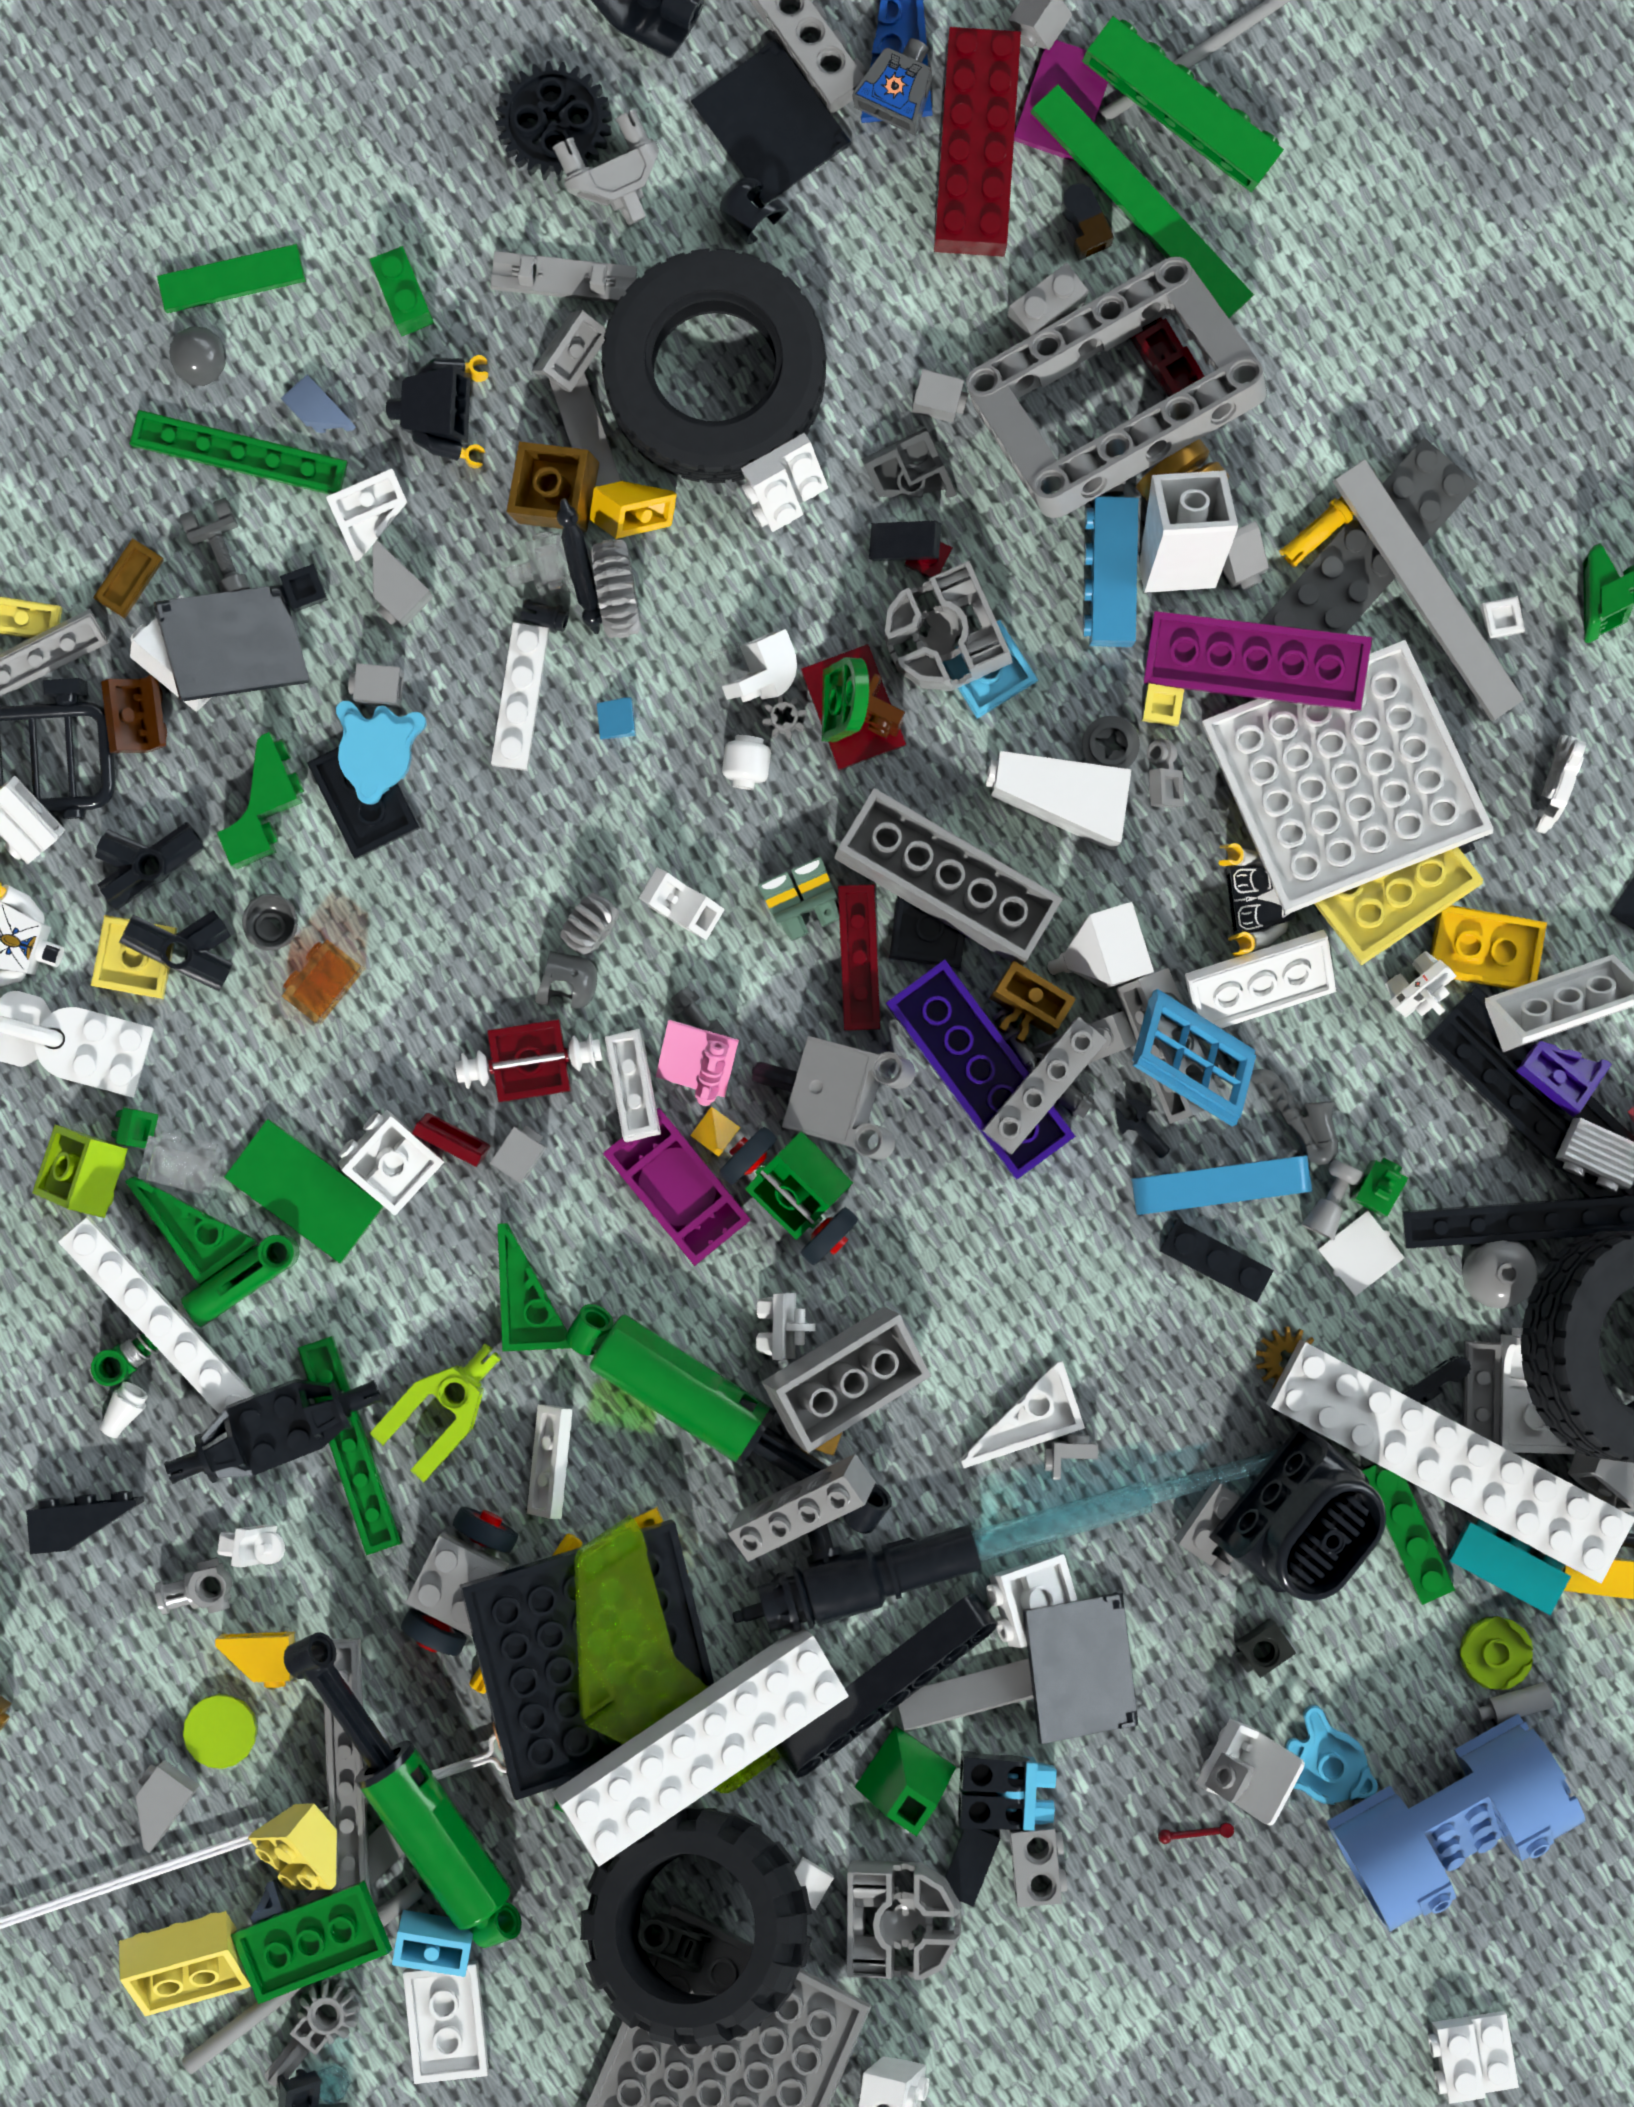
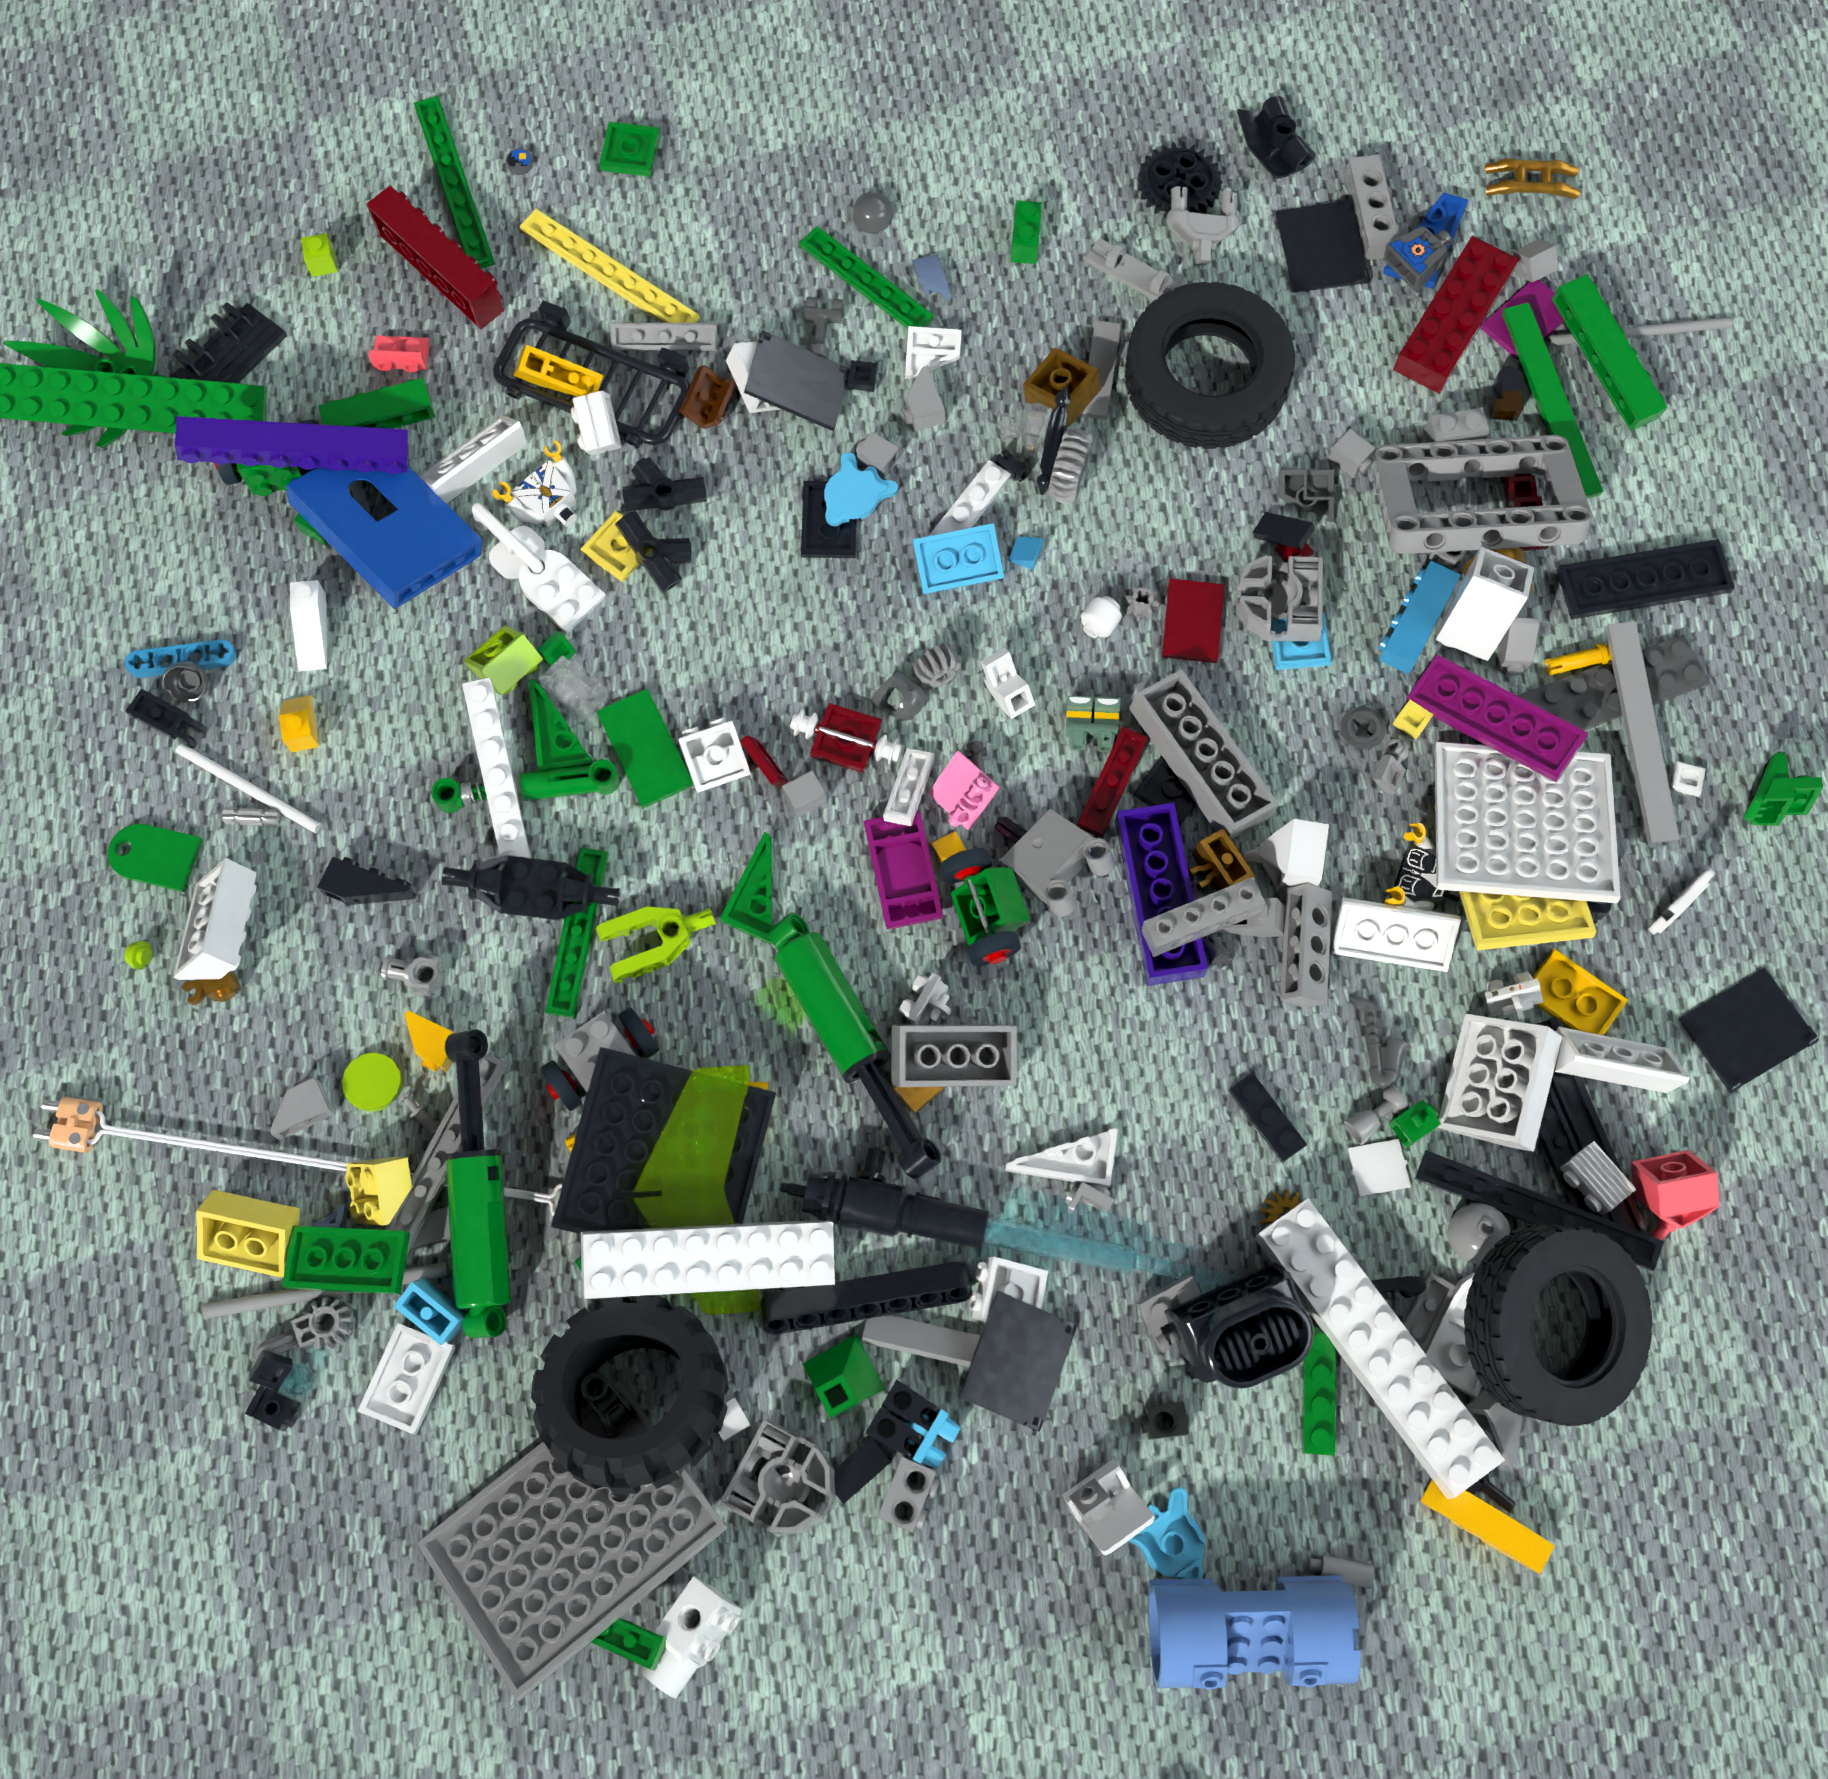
camera: 30 degrees right, 15 degrees down
(123, 1408) = (437, 827): white cone -> none
(128, 578) = (752, 319): pearl gold tile -> none
(231, 278) = (920, 179): green tile -> none
(252, 1545) = (470, 958): white hips -> none
(261, 930) = (718, 555): dark grey hair -> none
(271, 792) = (769, 487): green arch -> none
(295, 1739) = (419, 1113): none -> light grey piece
(322, 981) = (735, 618): clear orange brick -> none
(437, 406) = (1011, 307): black torso -> none
(543, 773) = (958, 558): none -> medium azure plate
(549, 1461) = (710, 1012): white plate -> none
(571, 350) = (1118, 315): light grey panel -> none
(631, 508) = (1108, 425): yellow slope -> none
(742, 213) = (1280, 279): black helmet -> none
(771, 668) = (1149, 565): white brick -> none
(783, 482) = (1219, 453): white plate -> none
(801, 1507) = (873, 1128): light grey brick -> none
(844, 698) = (1190, 600): green tile -> none
(881, 716) = (1210, 621): reddish brown bracket -> none
(1066, 793) = (1313, 737): white slope -> none
(1143, 1129) = (1258, 995): black bar -> none
(1174, 1079) = (1304, 967): dark azure piece -> none
(1221, 1185) = (1298, 1062): dark azure beam -> none
(1225, 1830) = (1066, 1550): dark red hinge -> none
(1350, 387) = (1645, 579): none -> black plate
(1449, 1096) = (1500, 1081): none -> white slope
(1492, 1642) = (1333, 1526): lime tile -> none
(1510, 1565) = (1386, 1455): teal brick -> none
(1563, 1075) = (1592, 1107): dark purple wing -> none

